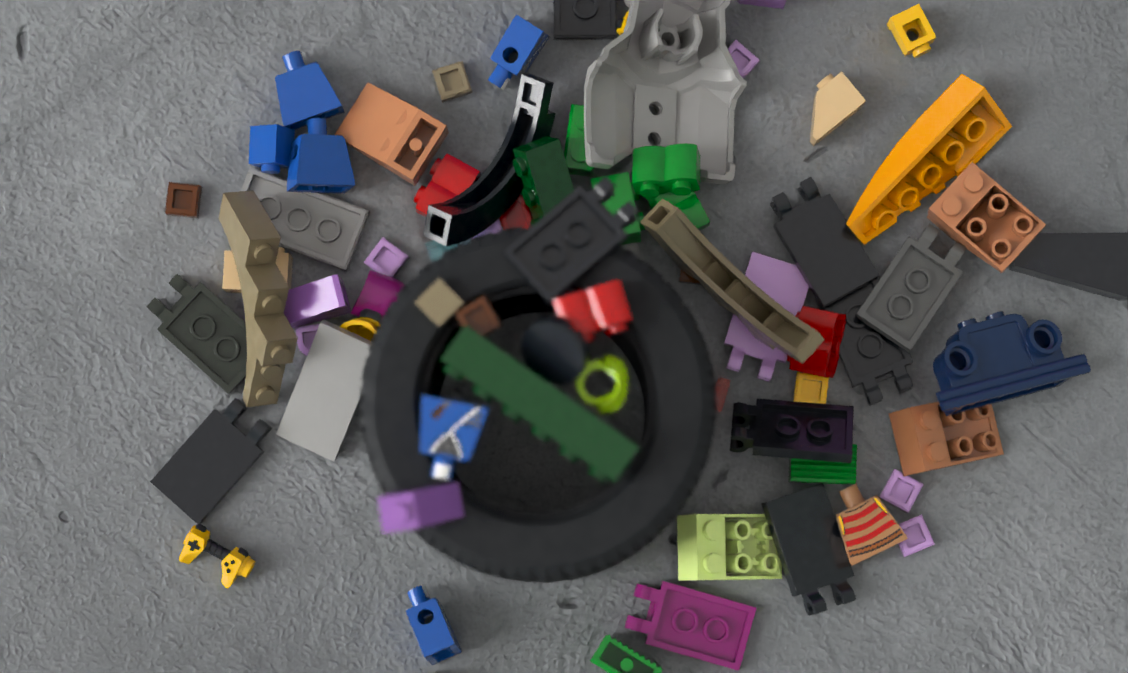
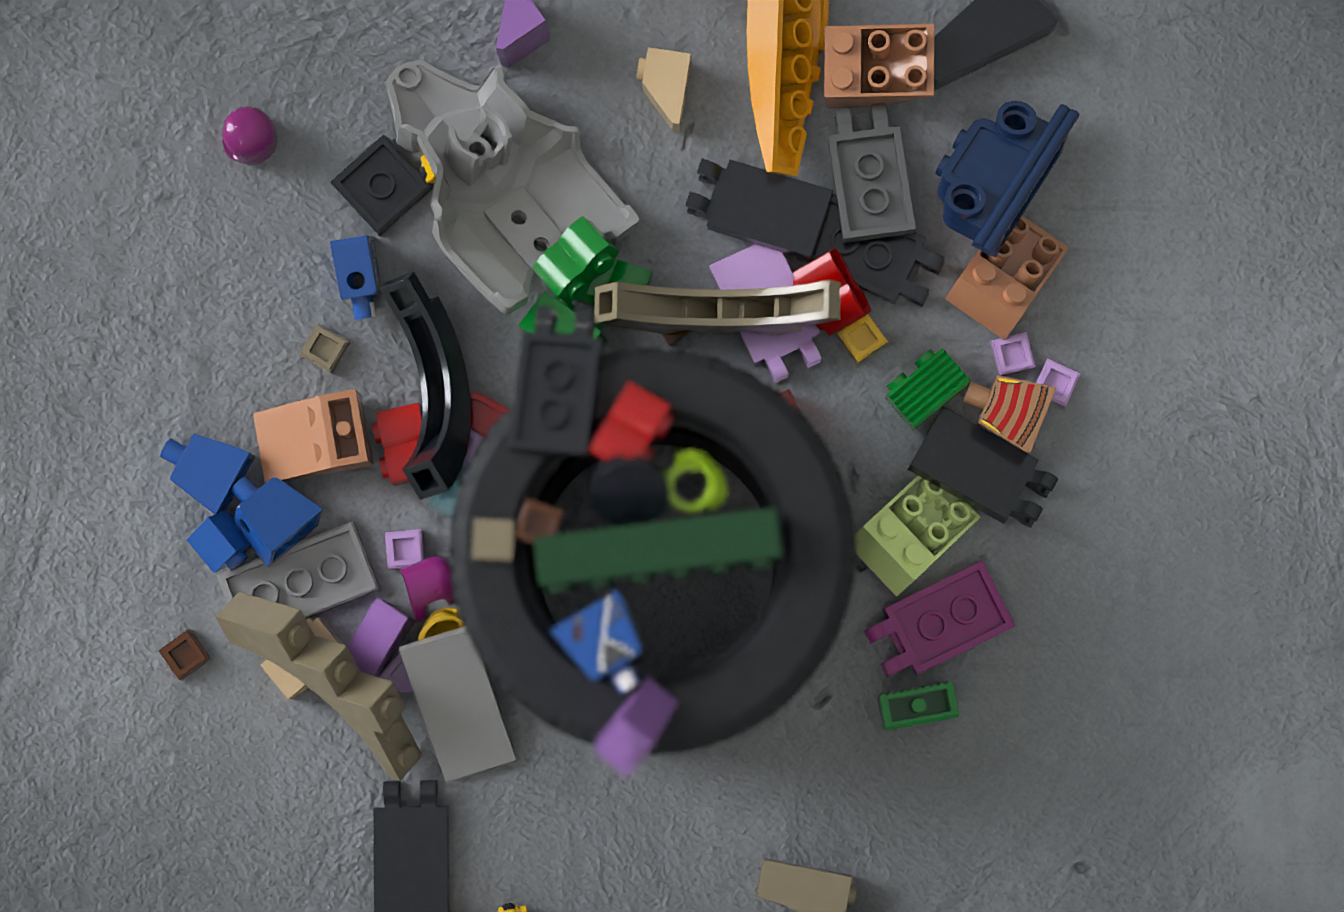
camera: 40 degrees left, 0 degrees up
(205, 332) = (307, 750): pearl dark grey tile -> none
(437, 637) = (739, 828): blue torso -> none
(543, 175) = (479, 359): dark green brick -> none
(575, 144) = (483, 312): green brick -> none
(743, 58) = (554, 109): lavender tile -> none
(793, 430) = (879, 383): black tile -> none

